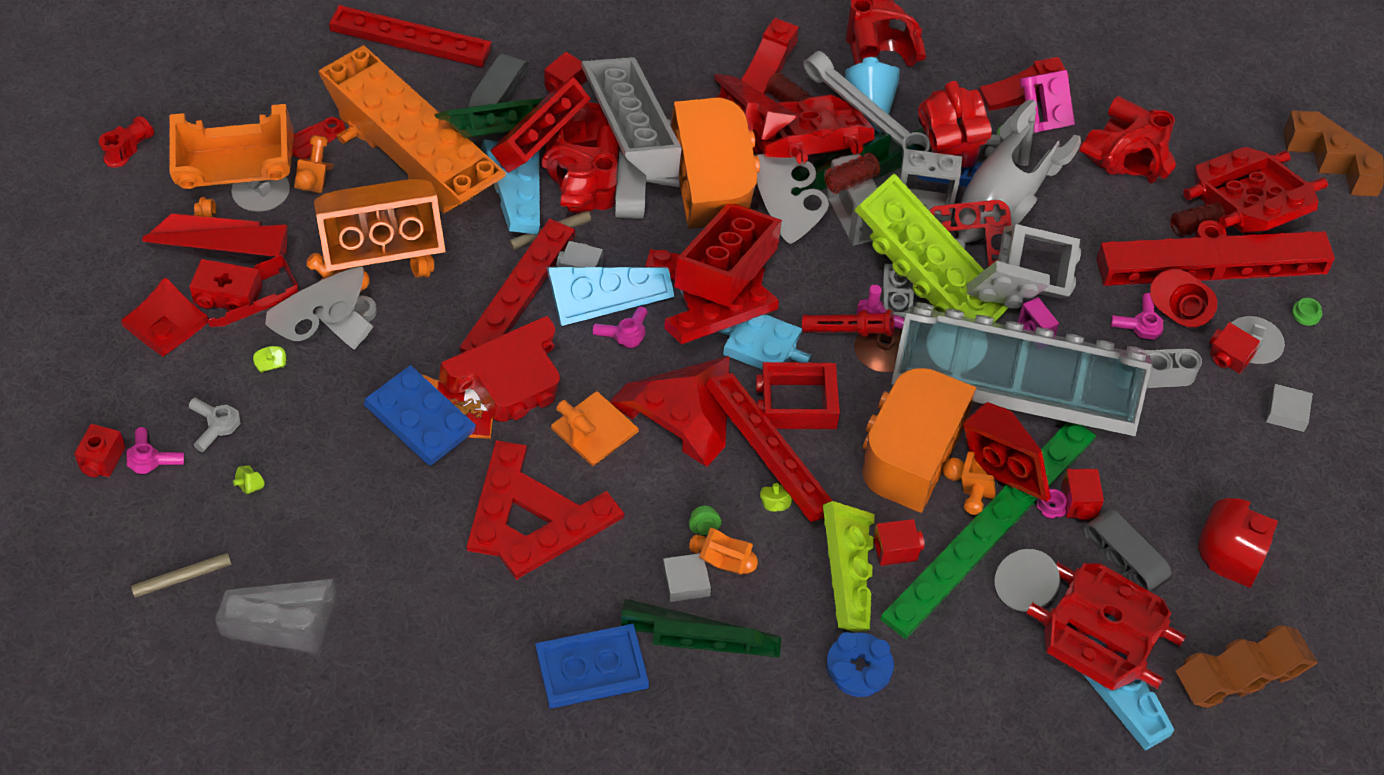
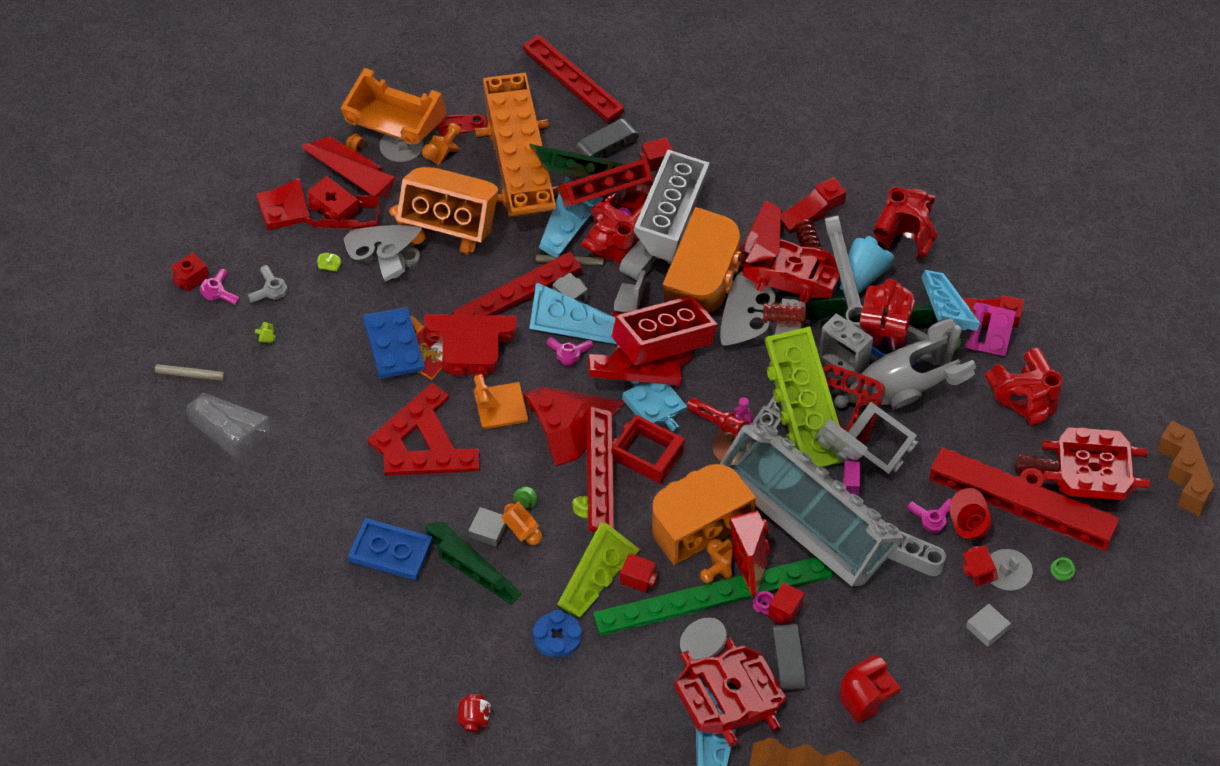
camera: 35 degrees right, 0 degrees up
(124, 141) = (333, 72): red connector -> none
(655, 237) = (630, 295): none -> light grey panel
(991, 93) = (947, 301): none -> medium azure wing

